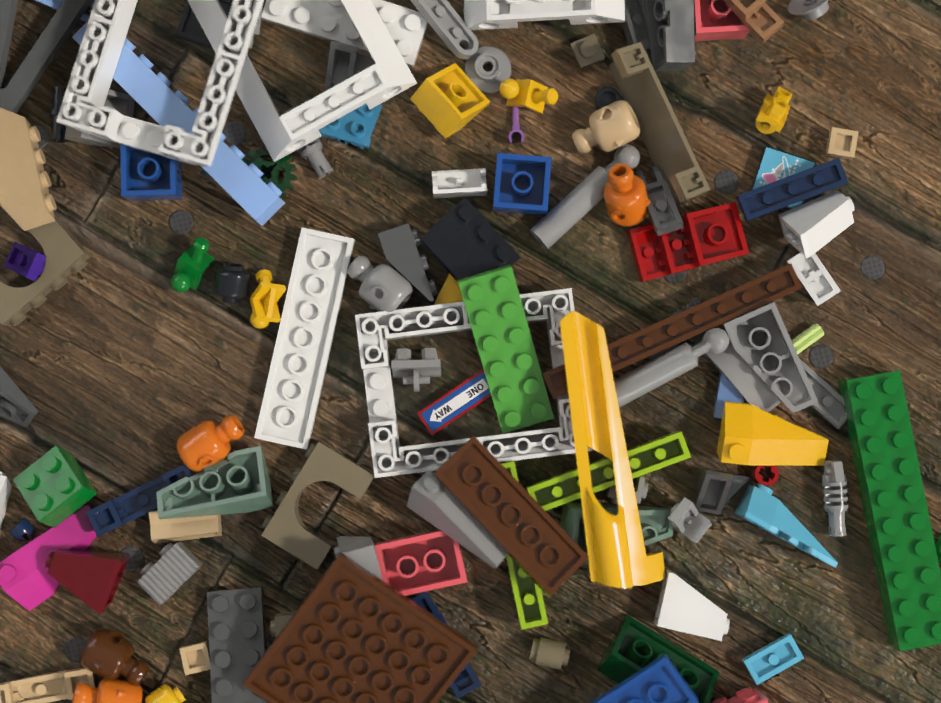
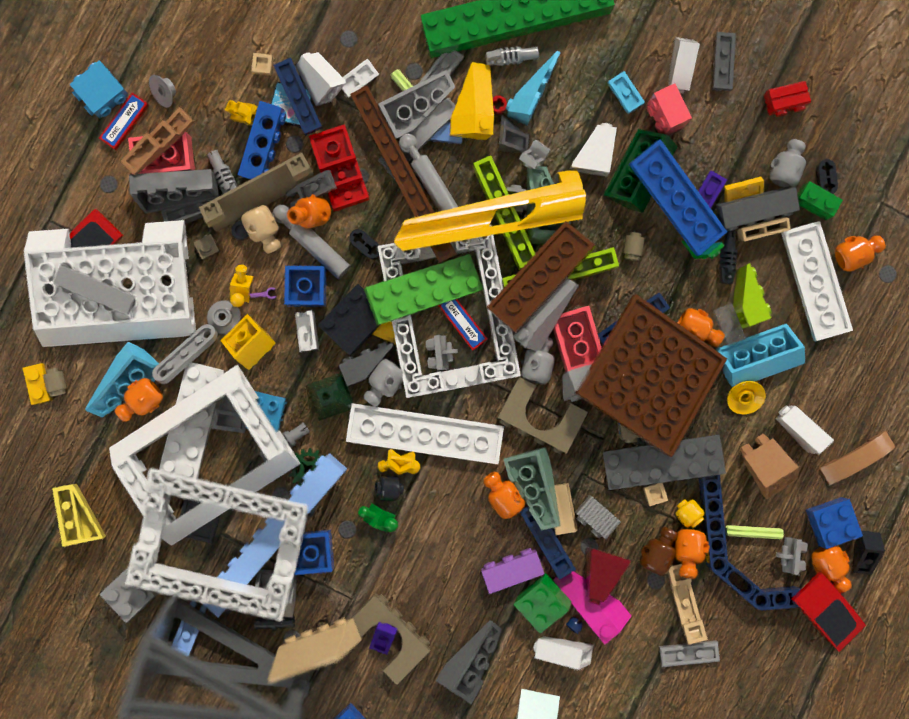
camera: 100 degrees left, 0 degrees up
(104, 447) = (512, 570): none -> medium lavender brick
(370, 219) = (339, 400): none -> clear green slope
(388, 504) = (538, 365): none -> light grey piece
(572, 267) = (362, 247): none -> black beam
(689, 78) = (222, 172): none -> light grey hinge
(744, 132) = (258, 132): none -> blue brick

